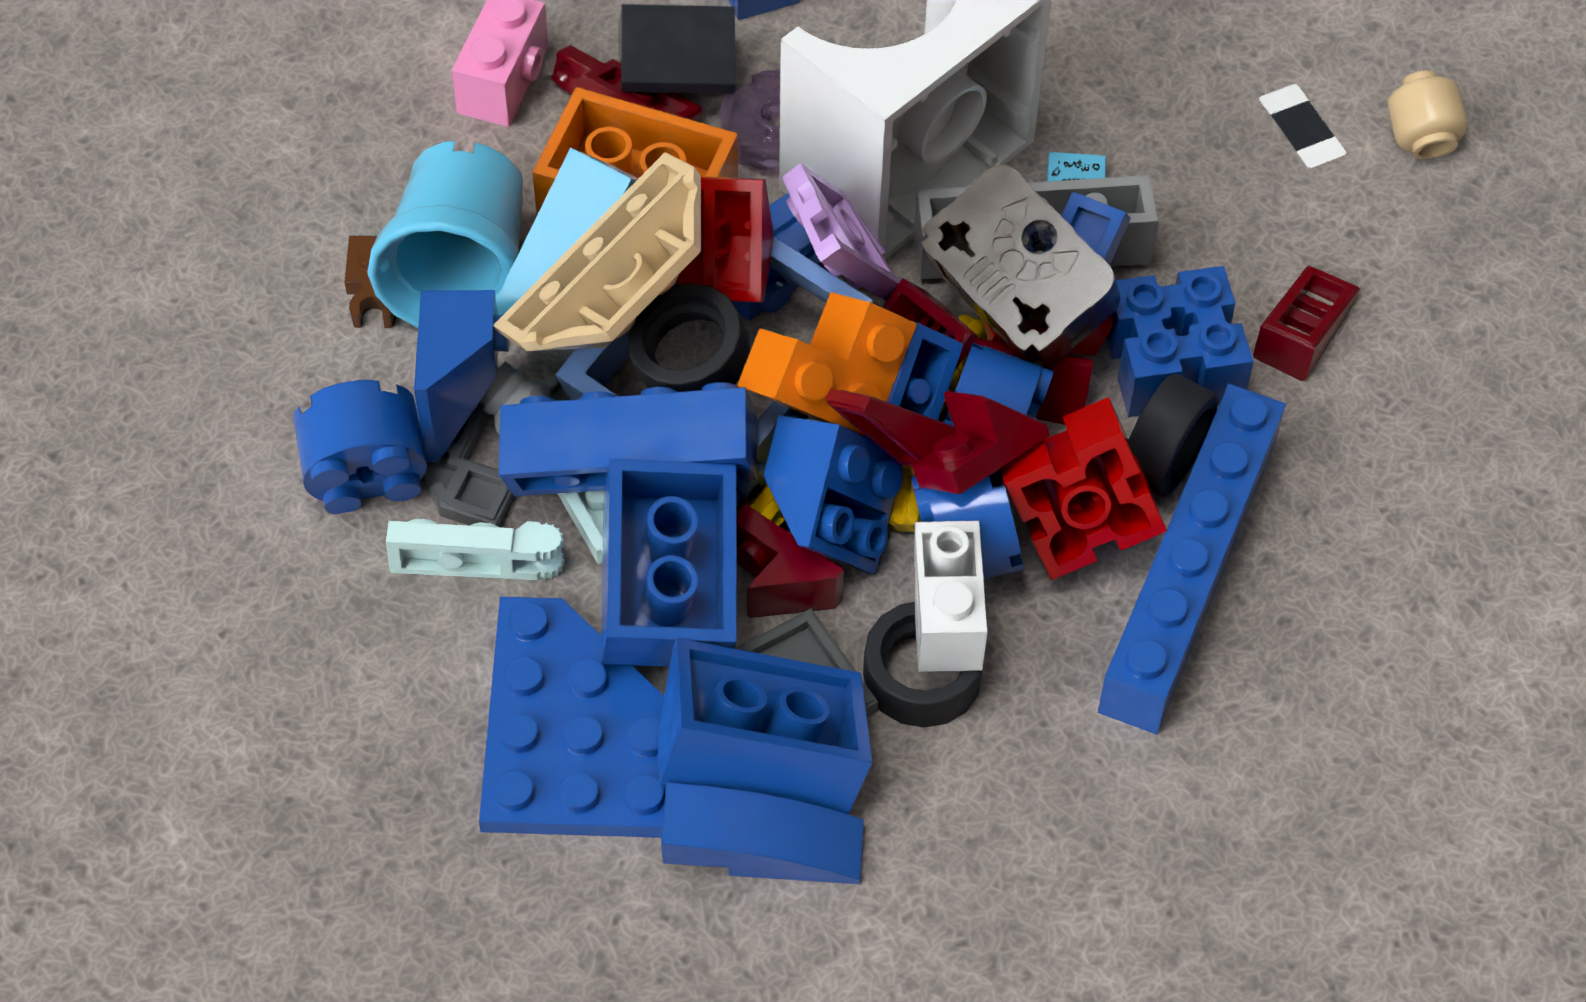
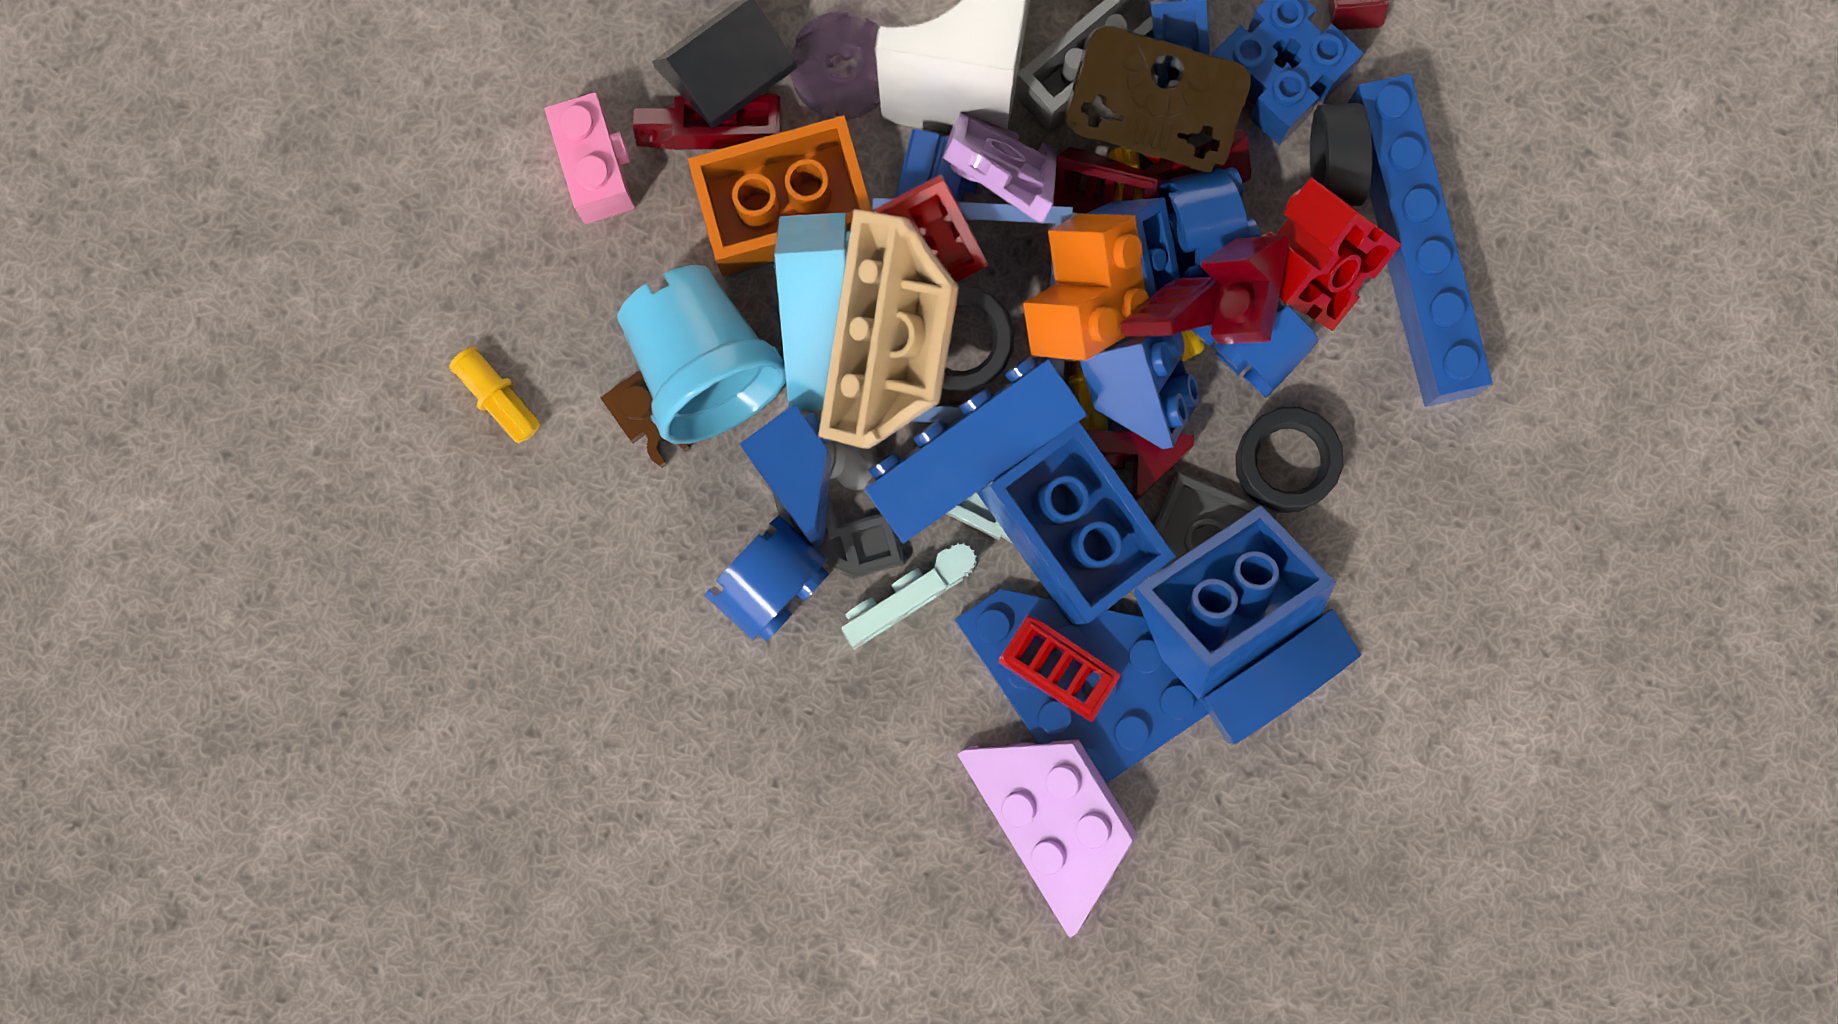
camera: 30 degrees left, 25 degrees up
(264, 181) = (494, 394): none -> yellow axle
(443, 821) = (1056, 820): none -> lavender wing
(541, 641) = (1020, 642): none -> red slope
(949, 596) = (1296, 411): white slope -> none

